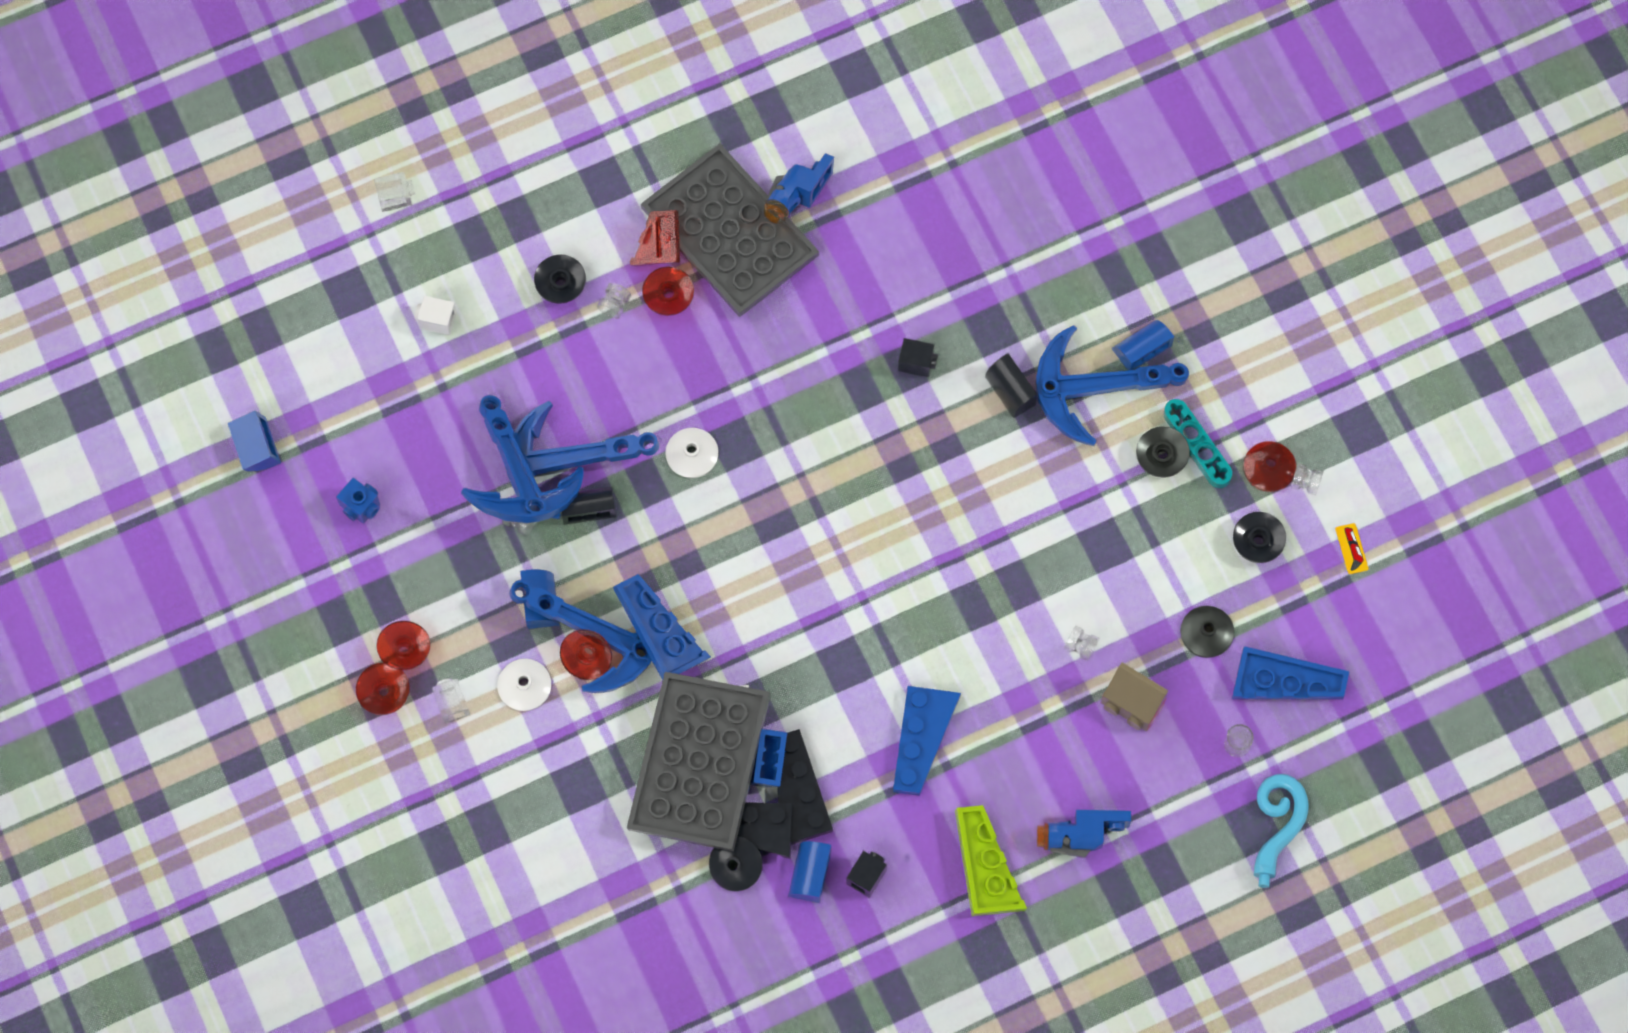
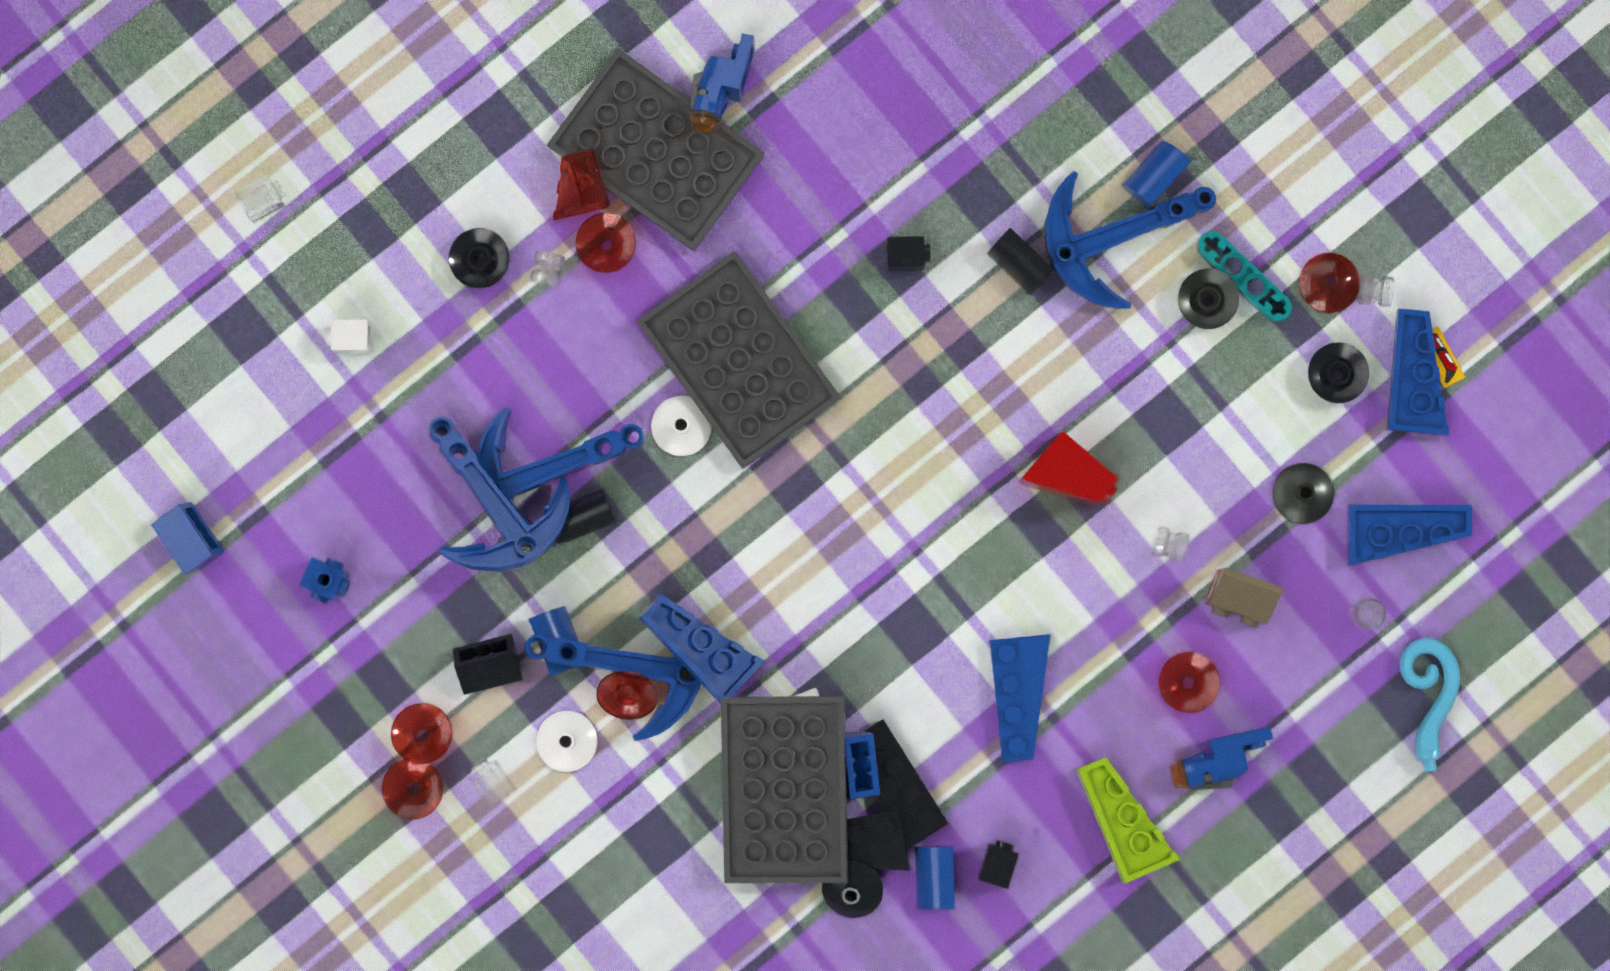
camera: 10 degrees left, 15 degrees up
(475, 603) = (487, 664): none -> black brick
(754, 410) = (738, 360): none -> dark grey plate
(1008, 561) = (1071, 473): none -> red slope
(1075, 748) = (1205, 682): none -> clear red dish
(1323, 565) = (1415, 386): none -> blue wing

